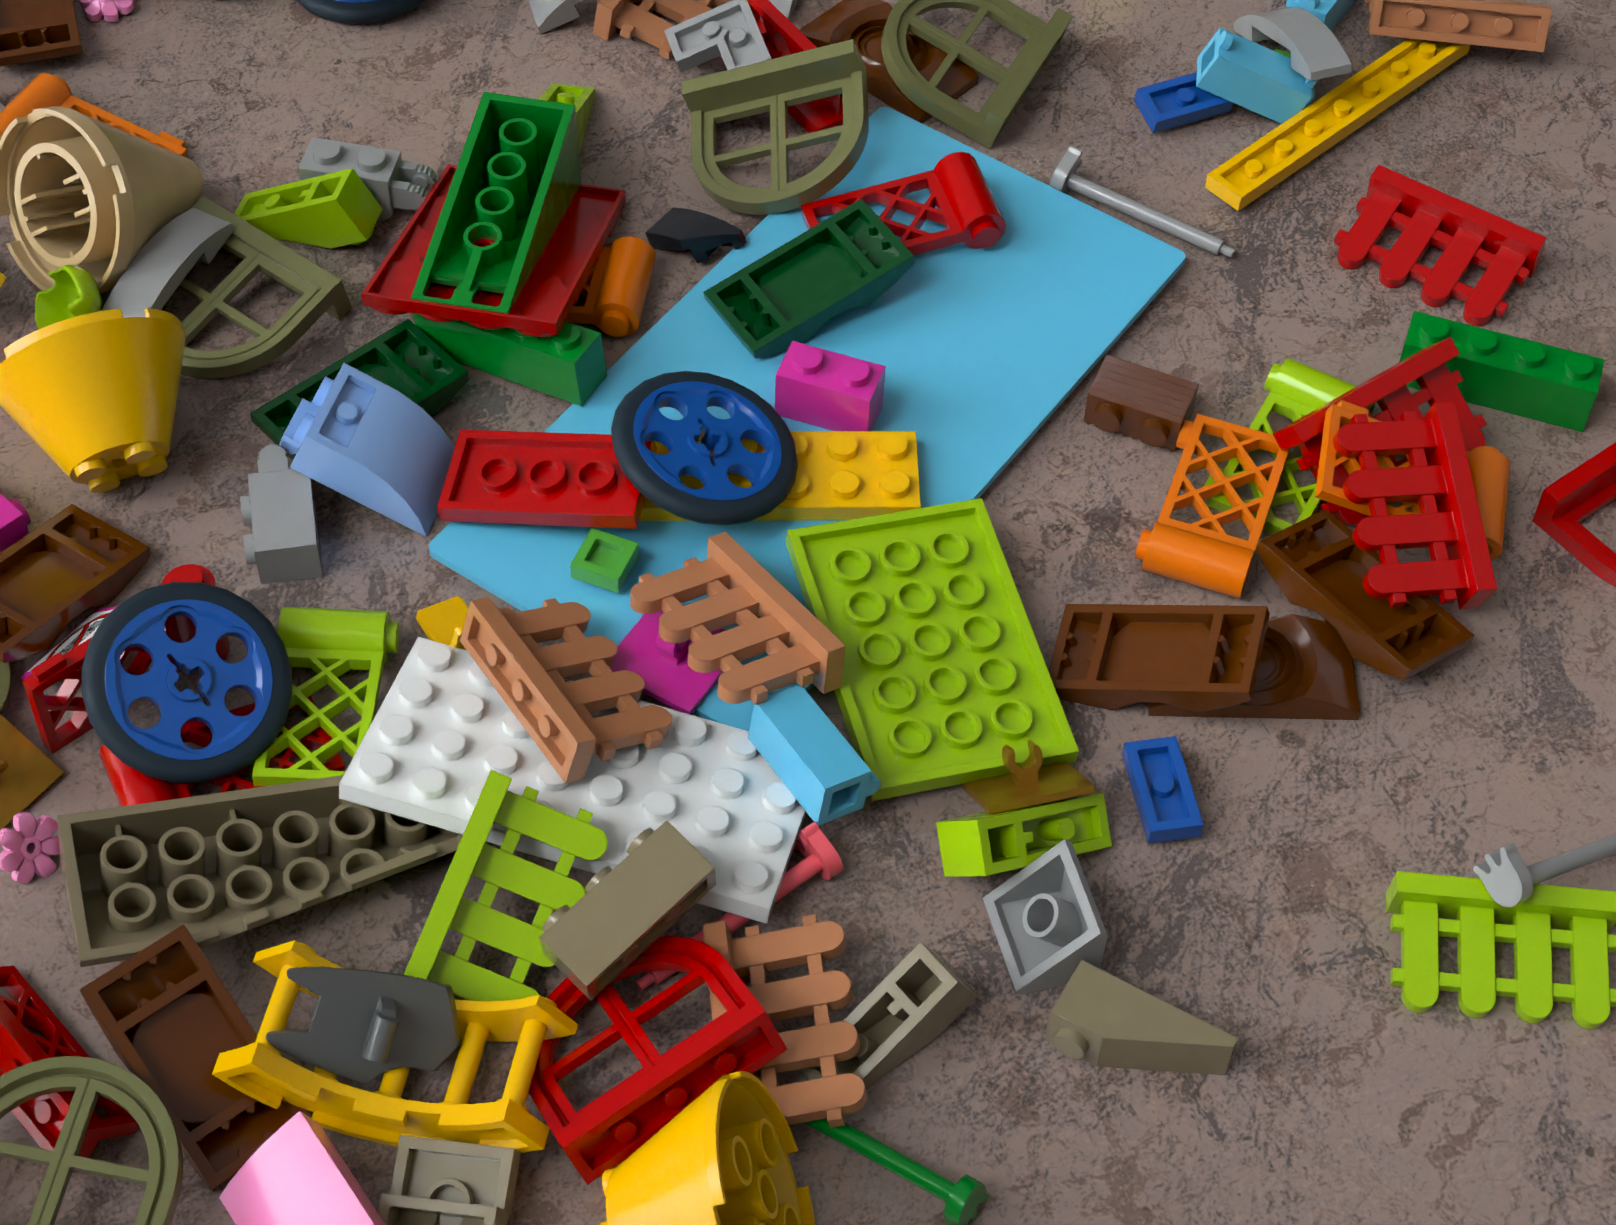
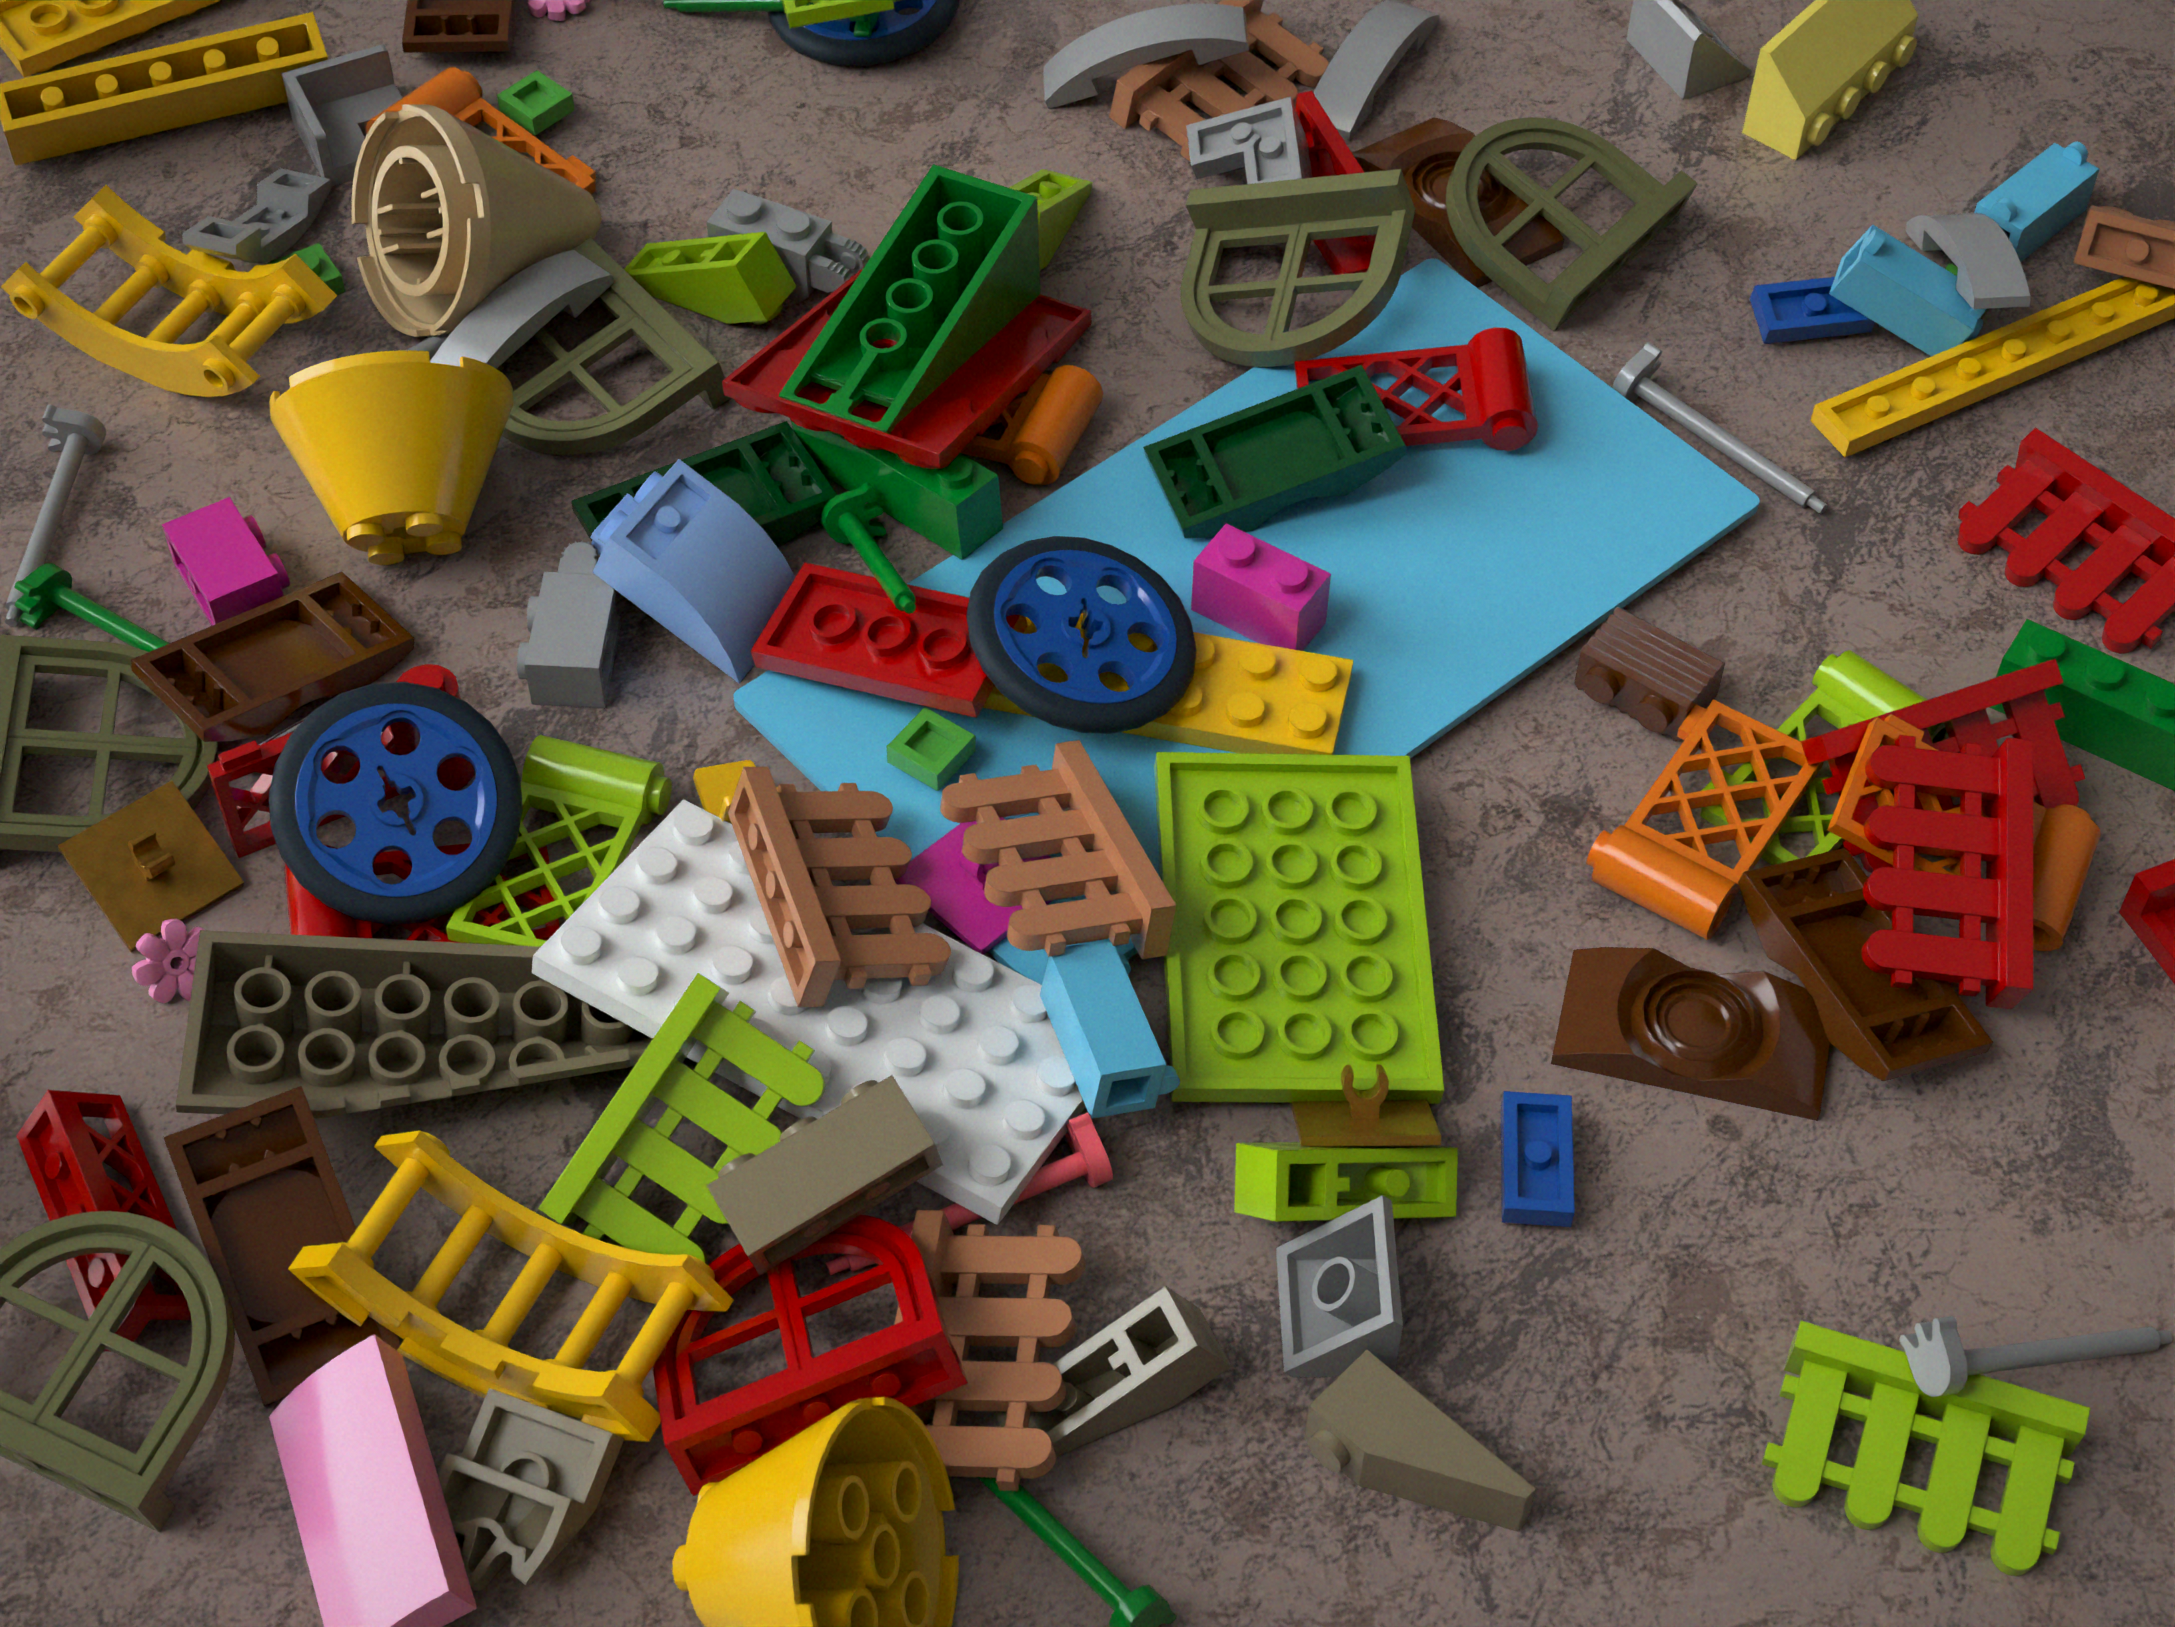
camera: 15 degrees right, 0 degrees up
(70, 296) = (408, 327): lime hair -> none
(118, 92) = (535, 102): none -> bright green plate
(372, 1022) = (489, 1247): dark grey shield -> none
(480, 391) = (848, 522): none -> green piece
(695, 231) = (1159, 373): black slope -> none
(1158, 654) = (1576, 990): reddish brown slope -> none

